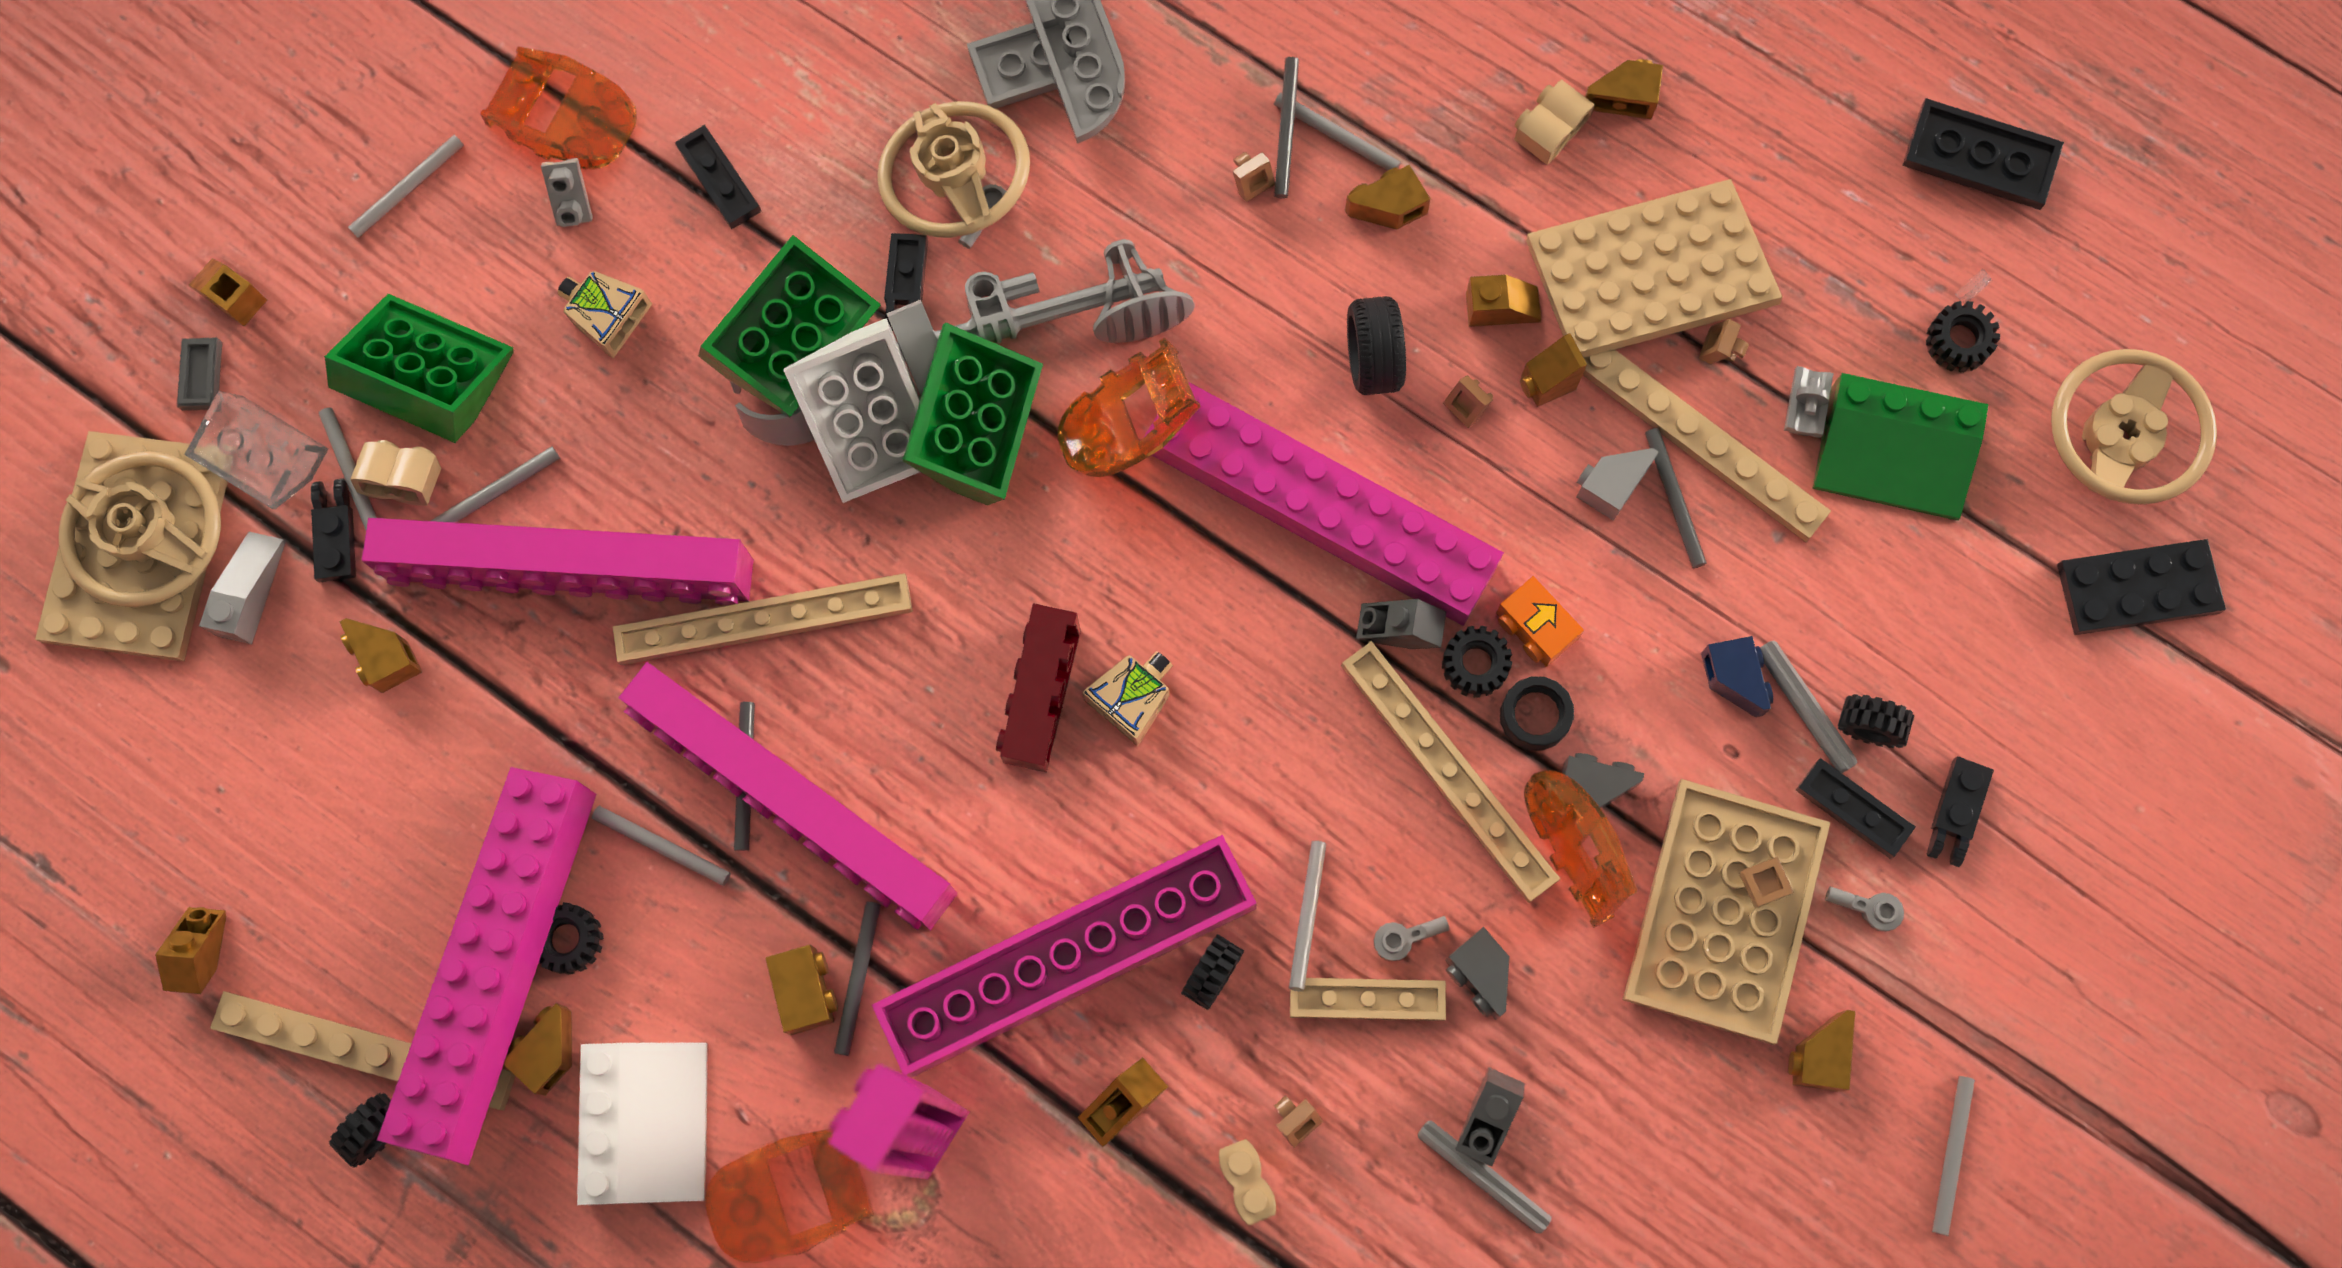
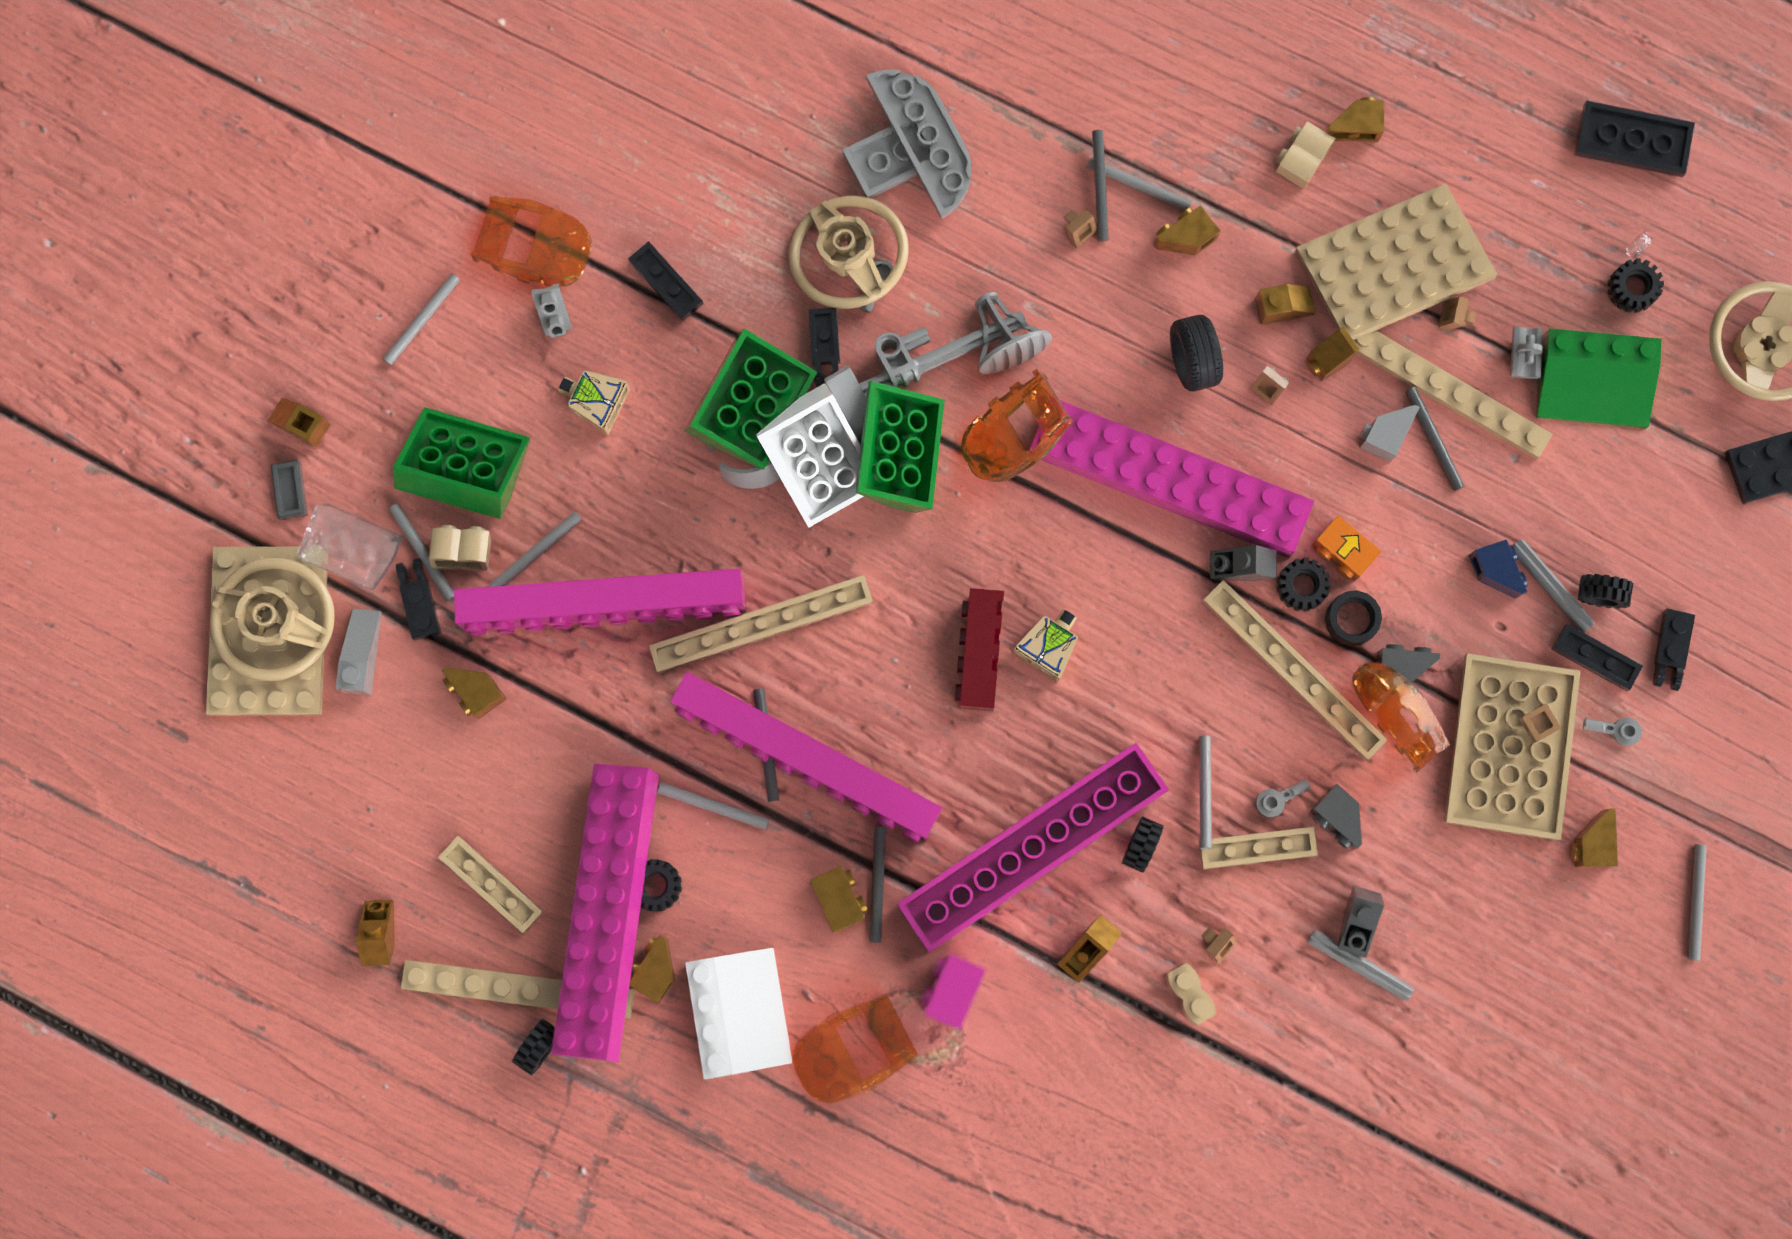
camera: 10 degrees left, 5 degrees up
(353, 908) = (491, 884): none -> tan plate

